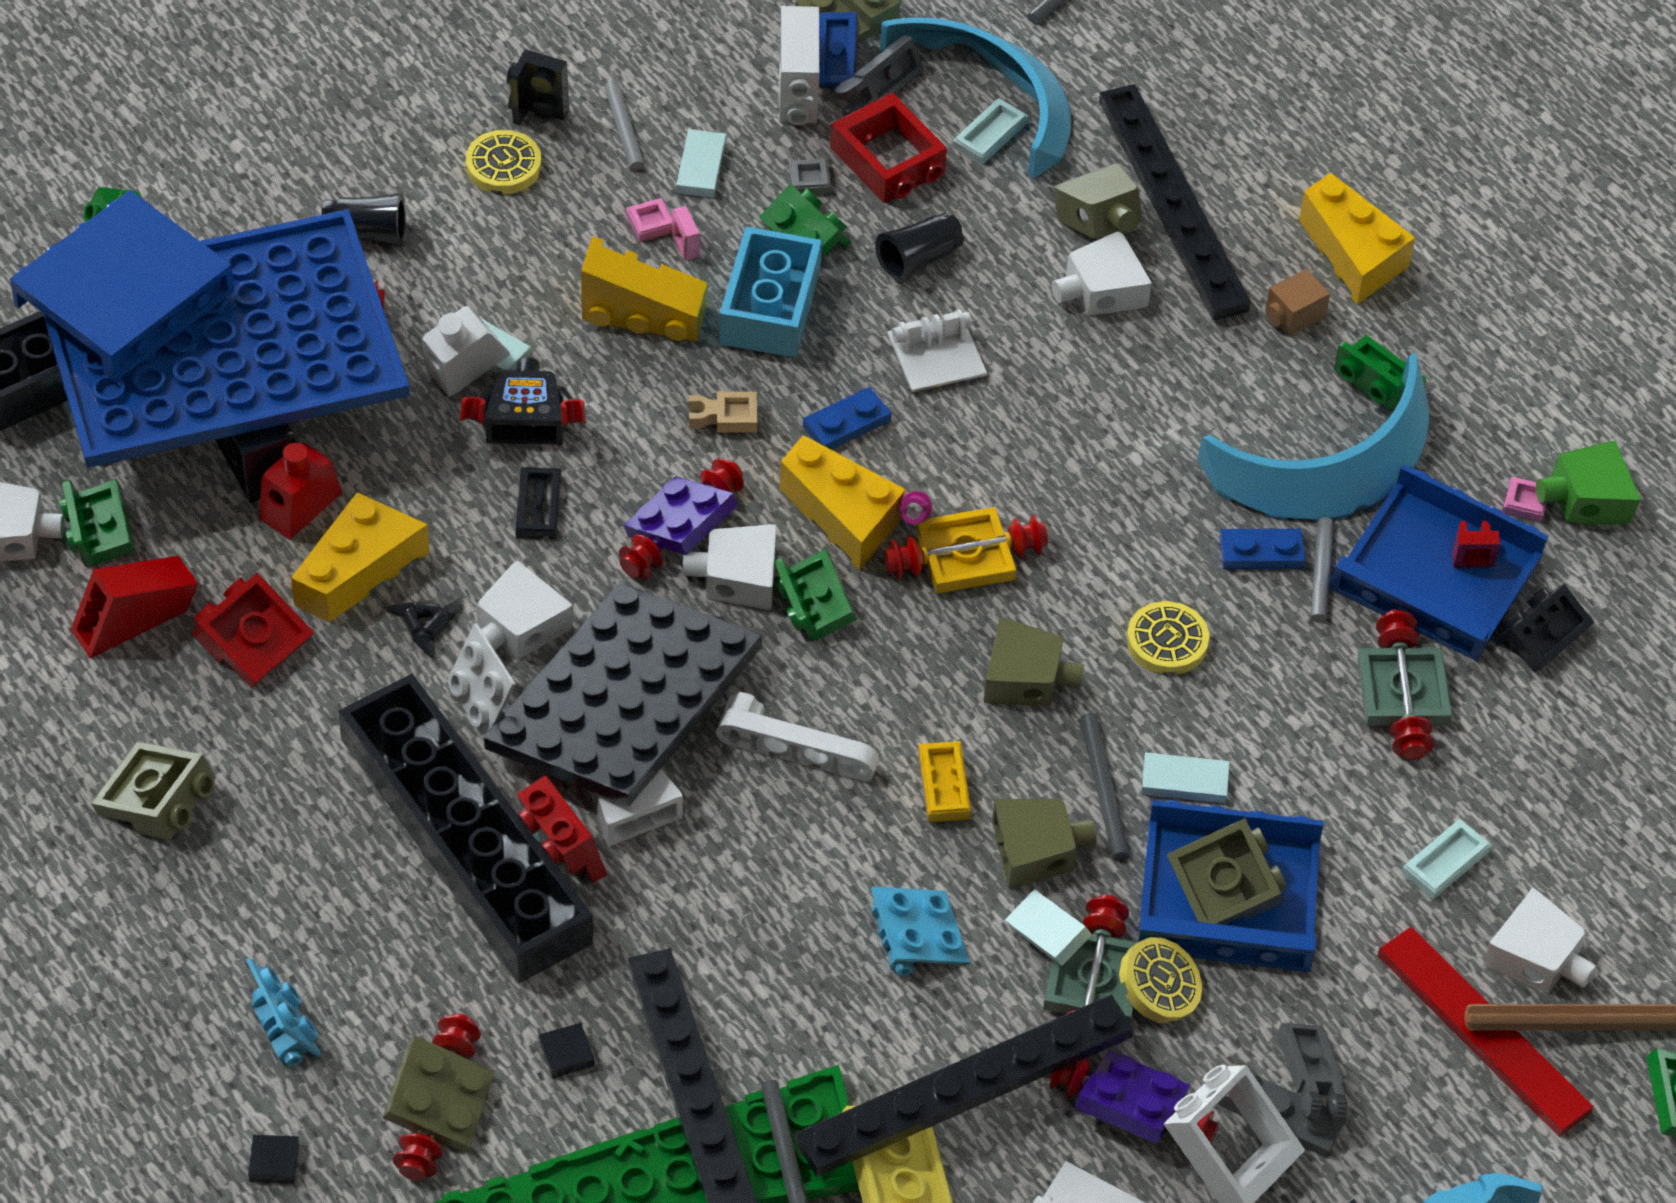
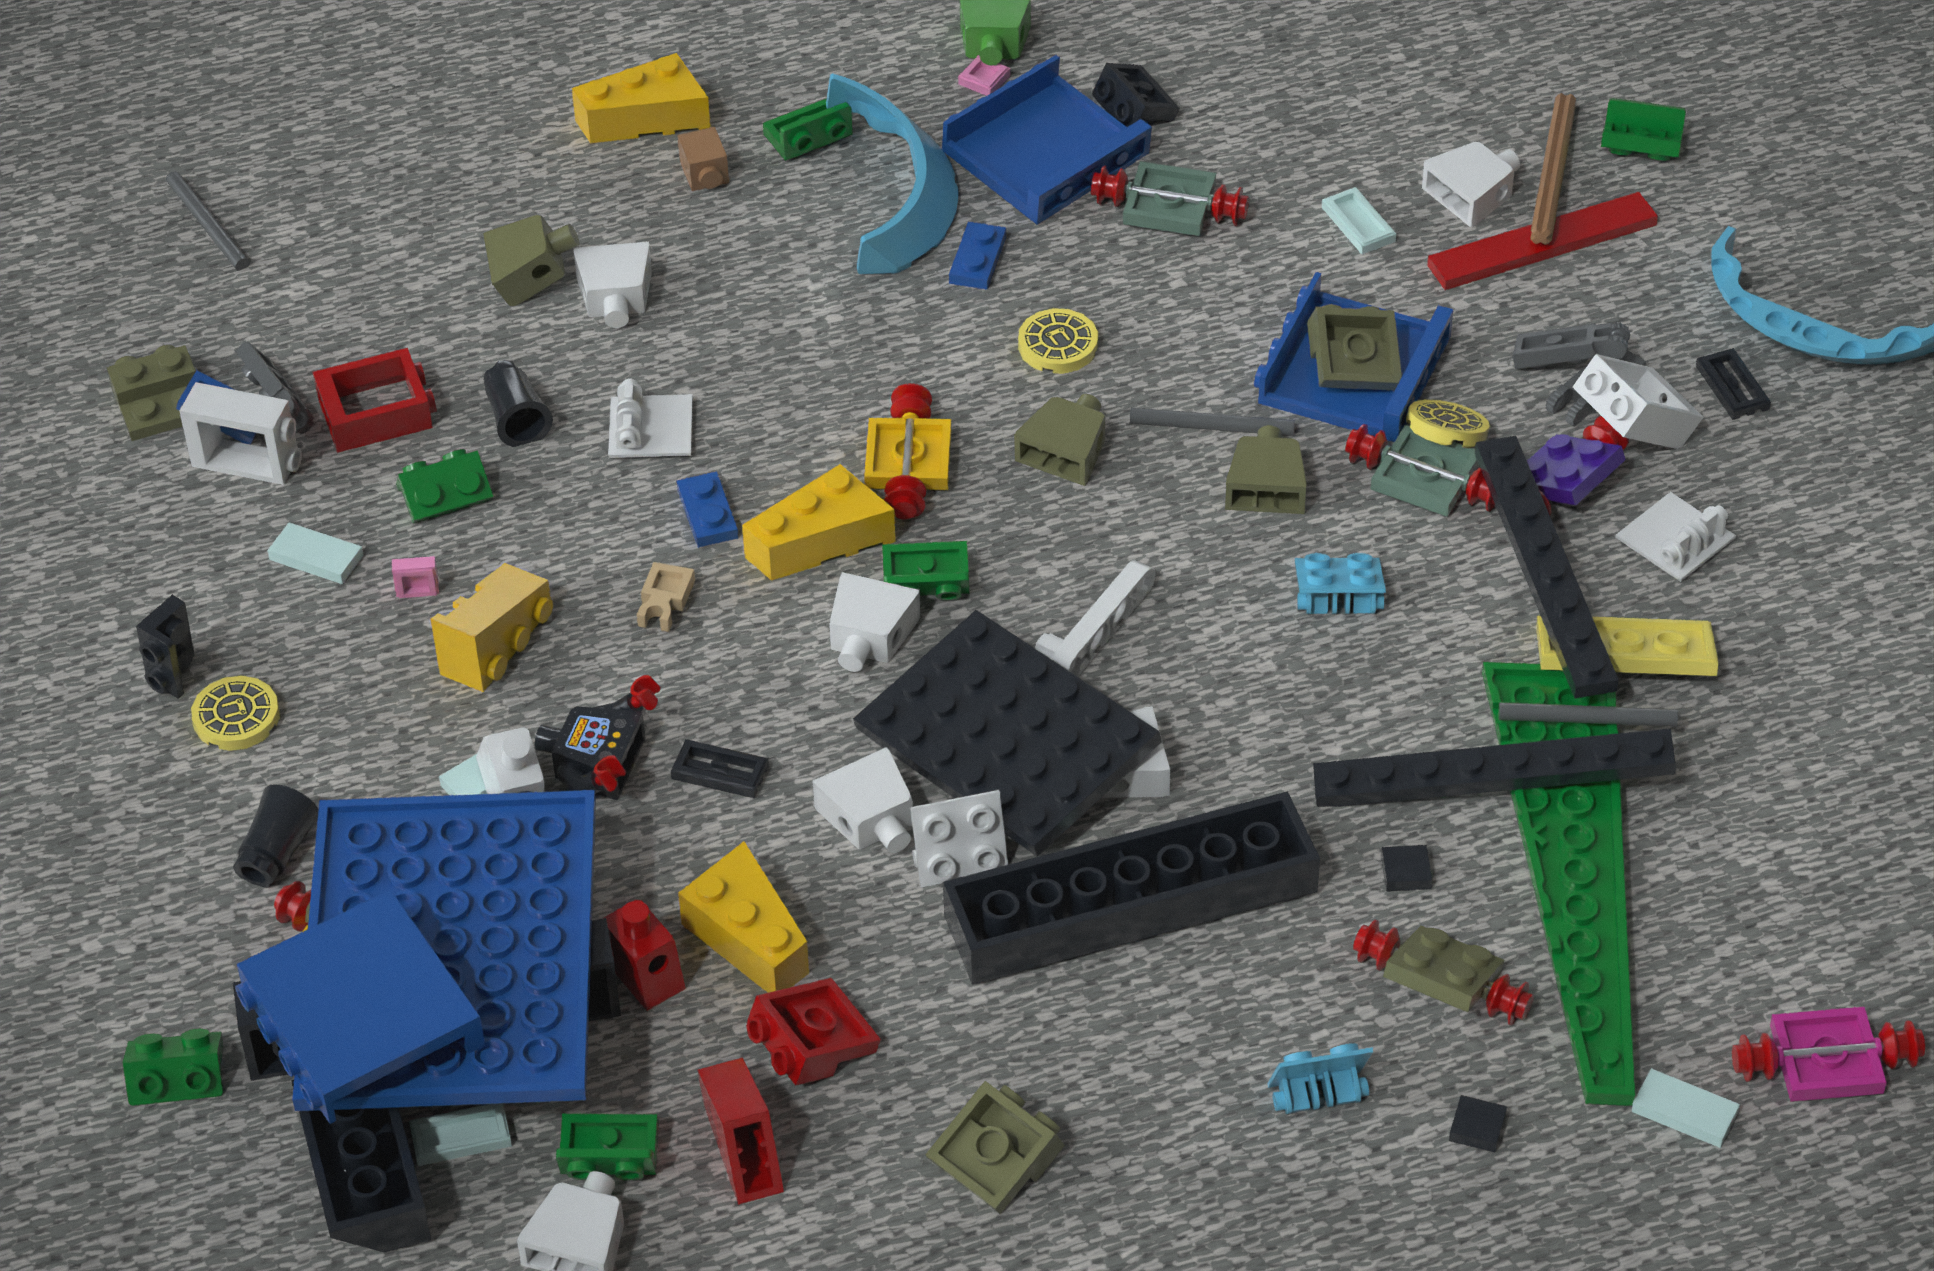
camera: 70 degrees left, 5 degrees down
(424, 632) = (837, 874): black piece -> none
(561, 829) = (1171, 796): red plate -> none
(624, 125) = (239, 605): light grey bar -> none
(650, 219) = (374, 608): bright pink tile -> none
(680, 517) = (792, 652): dark purple plate -> none
(770, 292) = (532, 521): medium azure brick -> none
(811, 175) = (374, 473): light grey tile -> none
(909, 514) = (867, 461): dark pink pin -> none
(944, 781) = (1176, 526): yellow plate -> none
(990, 131) = (377, 325): light aqua tile -> none
(1014, 63) = (320, 281): medium azure windscreen -> none
(1048, 927) = (1372, 482): light aqua tile -> none
(1174, 202) = (582, 211): black plate -> none
(1185, 778) = (1220, 365): light aqua tile -> none
(1322, 570) = (1015, 223): light grey bar -> none
(1475, 547) = (1040, 107): red tile -> none

